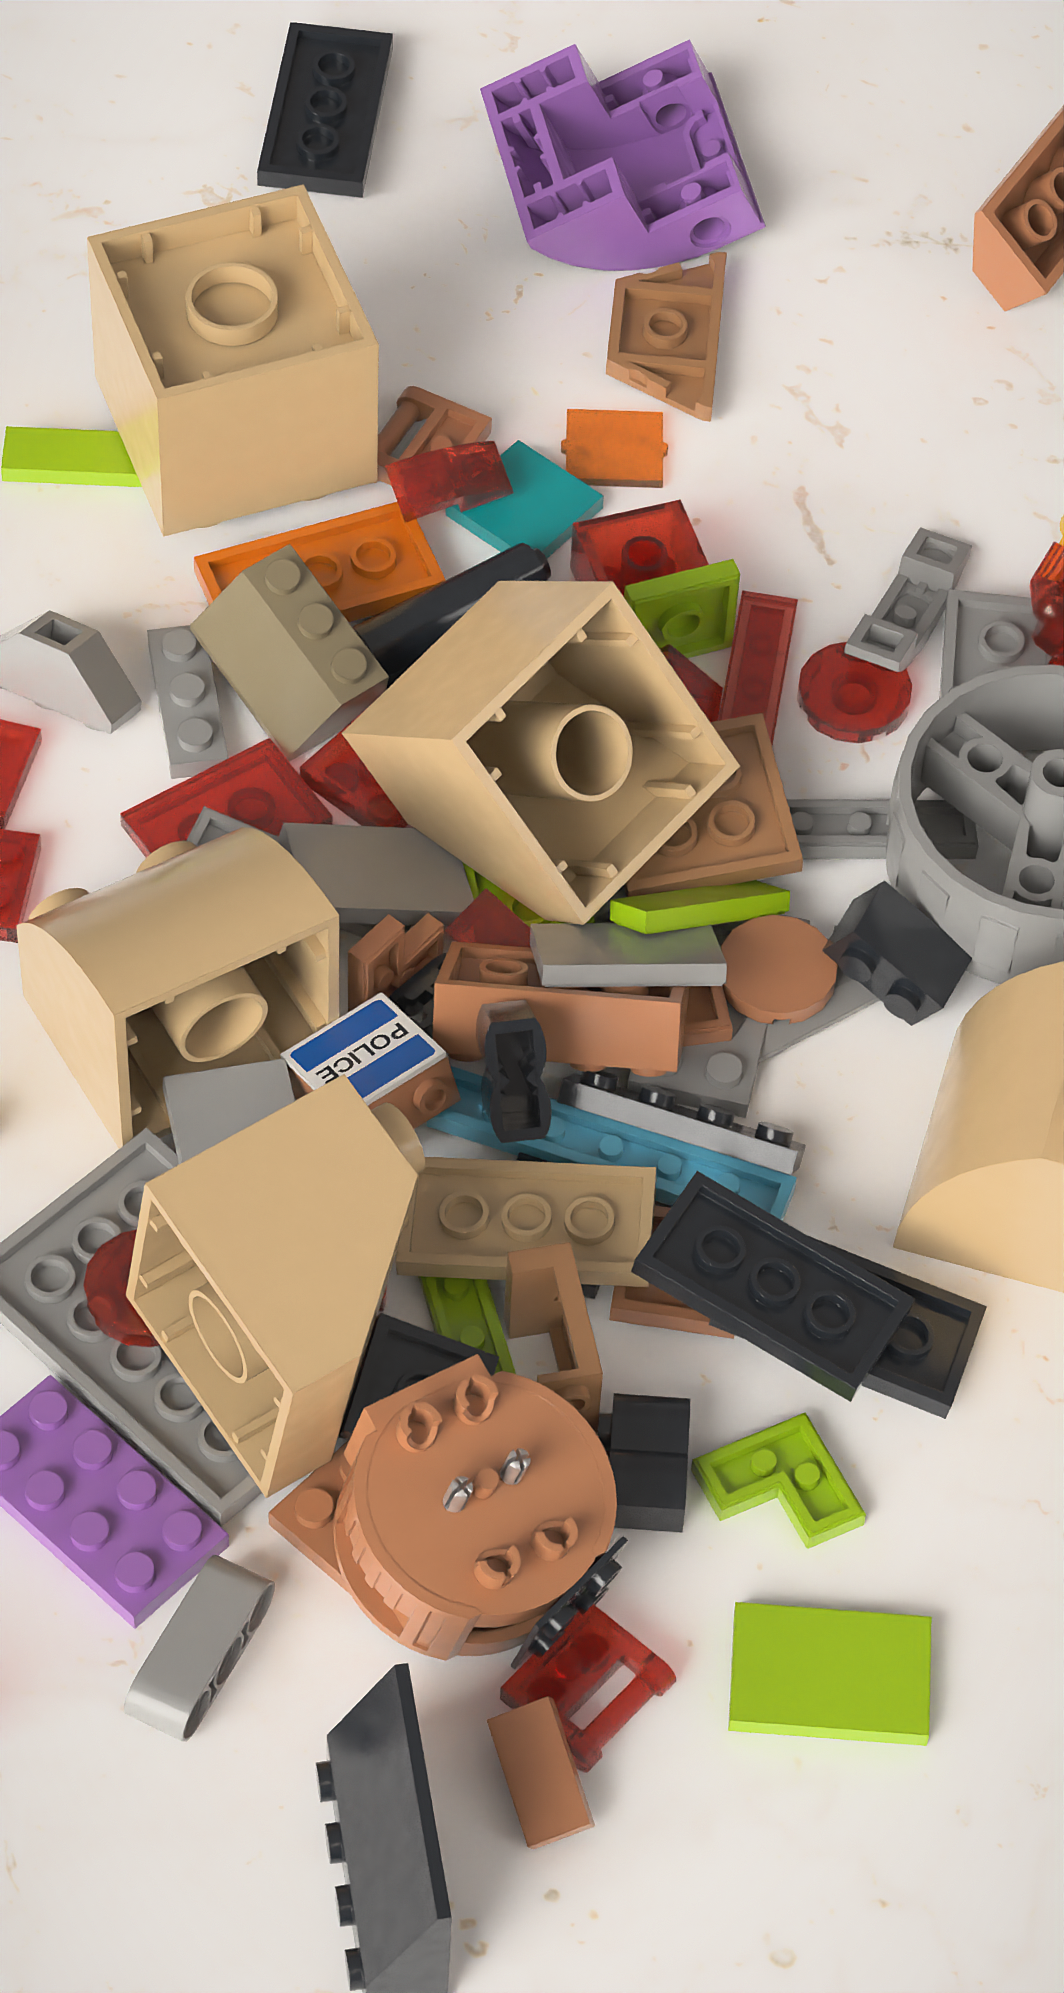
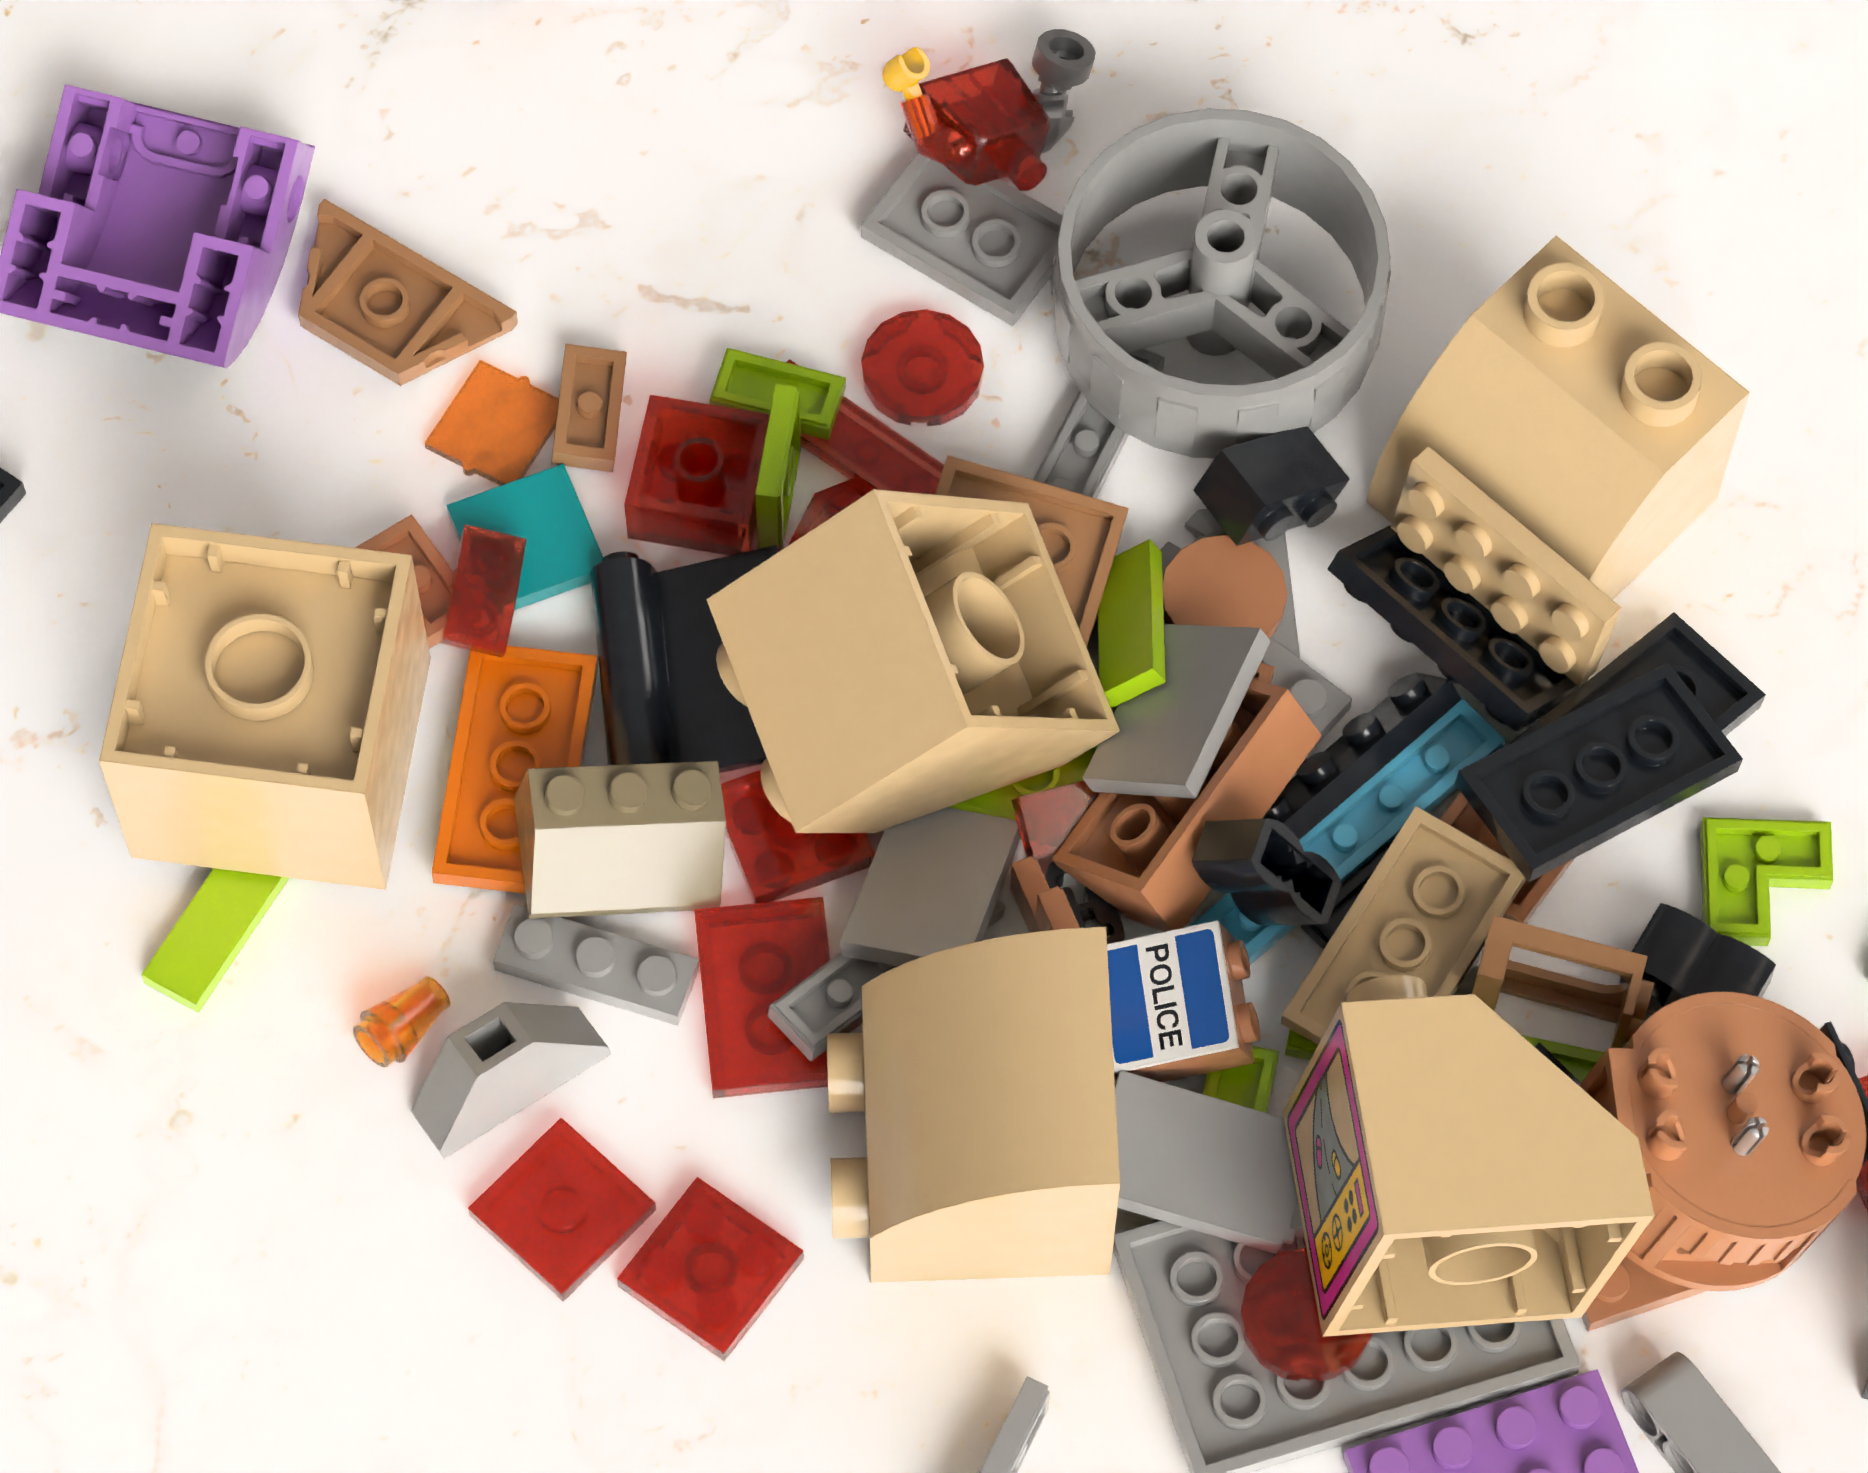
camera: 60 degrees left, 10 degrees up
(62, 593) = (398, 1023): none -> clear orange cone
(681, 476) = (589, 408): none -> medium nougat plate
(763, 608) = (749, 384): none -> lime tile
(859, 1140) = (1451, 629): none -> black plate
(911, 603) = (855, 271): light grey slope -> none
(914, 1131) = (1504, 567): none -> tan plate

